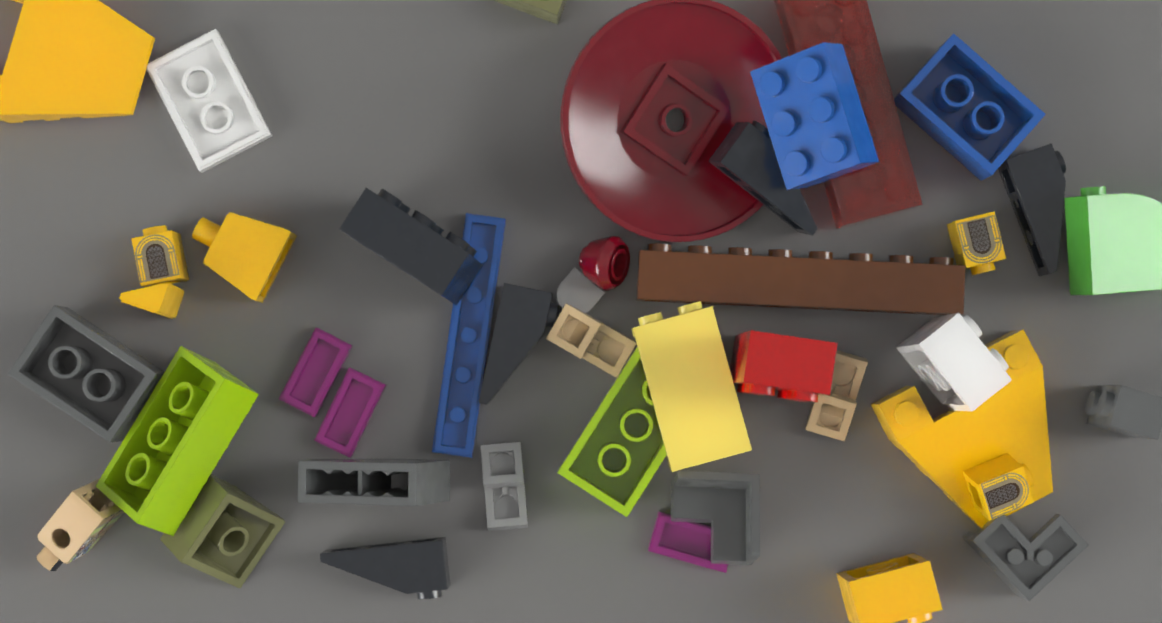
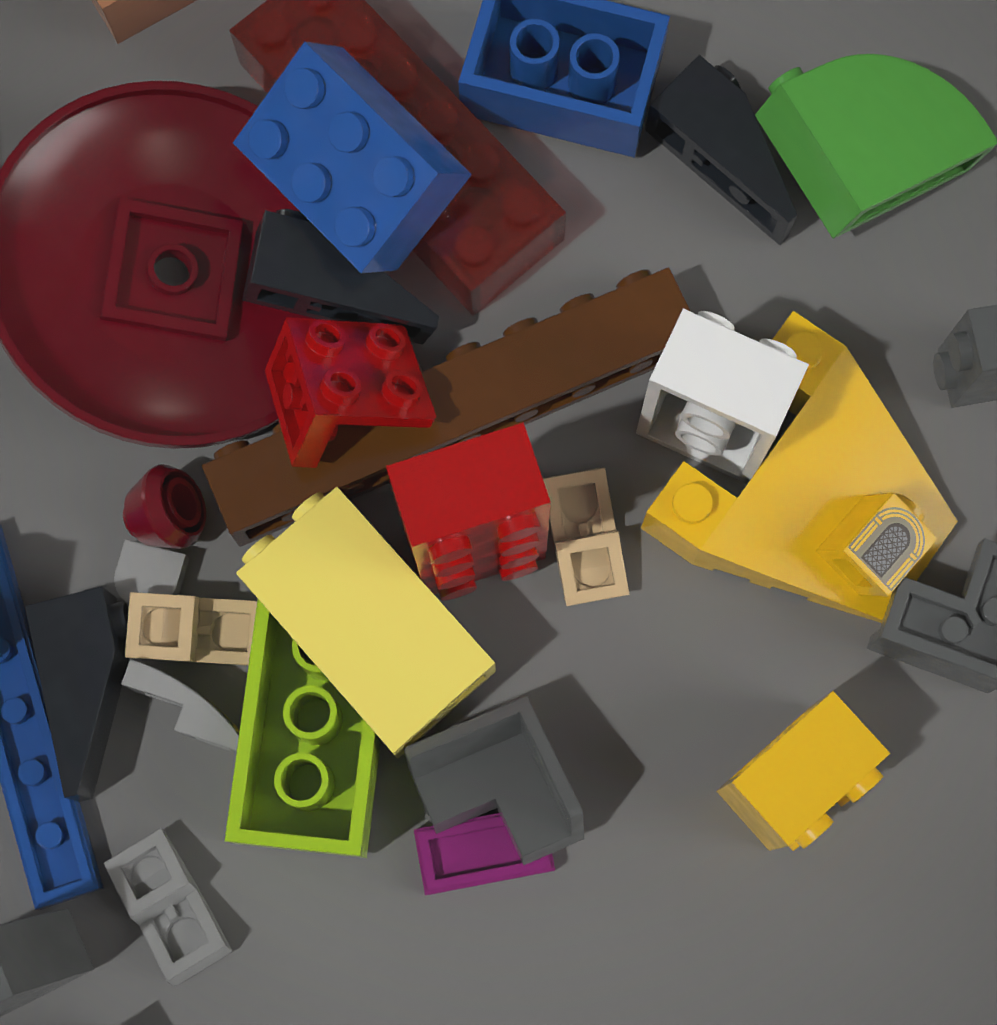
camera: 20 degrees left, 10 degrees down
(571, 393) = (197, 717): none -> light grey slope
(744, 243) = (343, 376): none -> red bracket
(977, 242) = (670, 233): brick -> none

